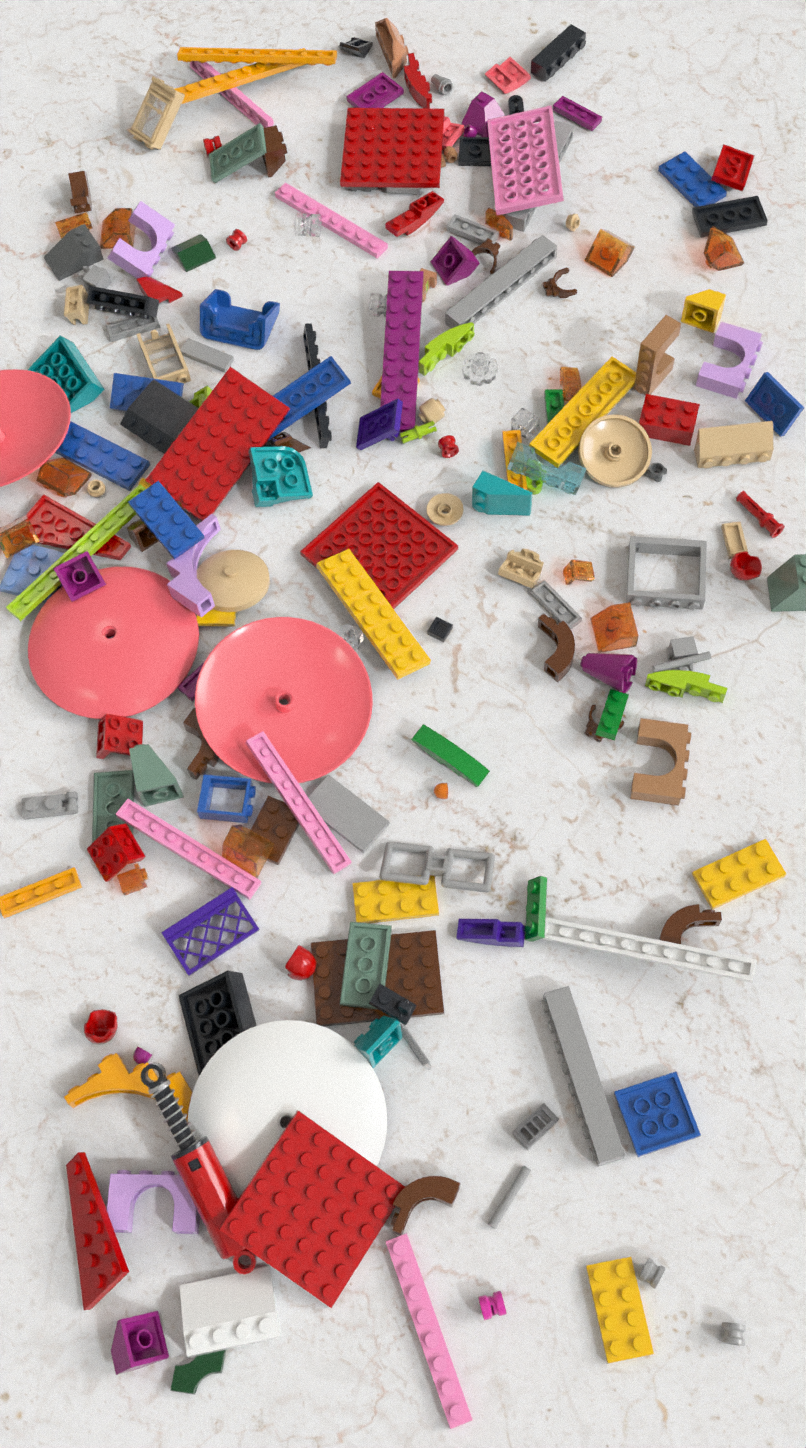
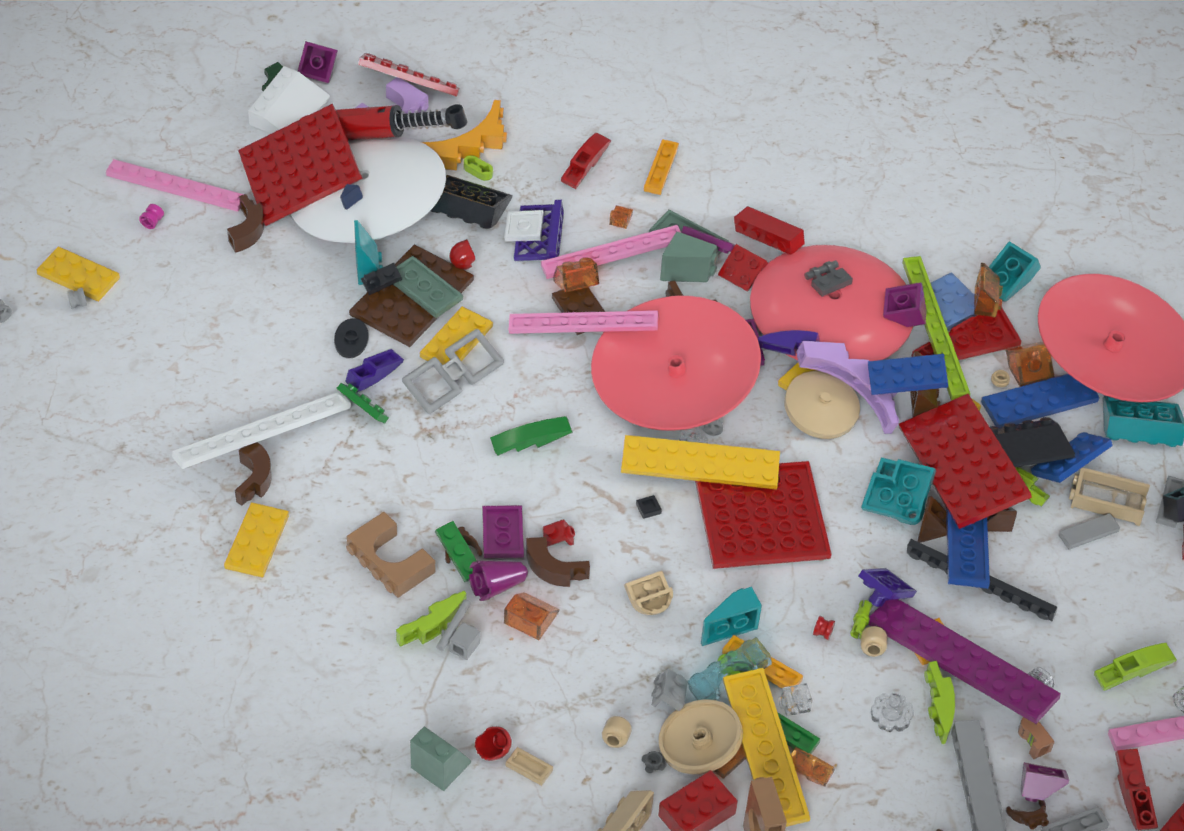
camera: 120 degrees right, 15 degrees down
(49, 806) = (726, 206): light grey plate -> none
(62, 740) = (769, 230): none -> red brick
(82, 957) = (584, 159): none -> red slope
(97, 638) = (831, 281): none -> dark grey plate
(101, 1026) = (529, 143): red hair -> none
(111, 779) = (723, 245): none -> magenta plate
(115, 850) = (649, 216): red bracket -> none
(141, 1056) = (490, 155): magenta hinge -> none
(172, 1053) = (478, 168): none -> lime beam
(191, 630) = (786, 341): none -> dark purple slope
(206, 793) = (631, 277): blue window -> none
(215, 947) = (524, 226): none -> white tile
(236, 324) = (1113, 571): blue windscreen -> none
(311, 261) = (1134, 664): none -> lime slope
(329, 1100) = (350, 195): none -> dark blue slope
(347, 814) = (550, 353): light grey tile -> none
(416, 1044) = (348, 285): light grey piece -> none
(441, 790) = (508, 414): orange hinge -> none
(445, 503) = (762, 575): tan dish -> none
(470, 987) = (351, 338): none -> black piece
(509, 1197) = (200, 268): light grey bar -> none
(526, 665) = (559, 532): none -> red bracket
(541, 1131) = (227, 296): flat silver slope -> none
(555, 604) = (594, 595): light grey tile -> none
(561, 704) = (503, 531): none -> magenta plate
(578, 570) = (607, 628): clear orange bracket -> none
(583, 1077) = (227, 349): light grey brick -> none
(595, 496) = (670, 689): none -> light grey bracket
(657, 1114) = (159, 369): blue plate -> none
(658, 504) = (616, 732): none -> tan head
(667, 547) = (567, 708): light grey window -> none
(765, 519) = (524, 800): red pin -> none

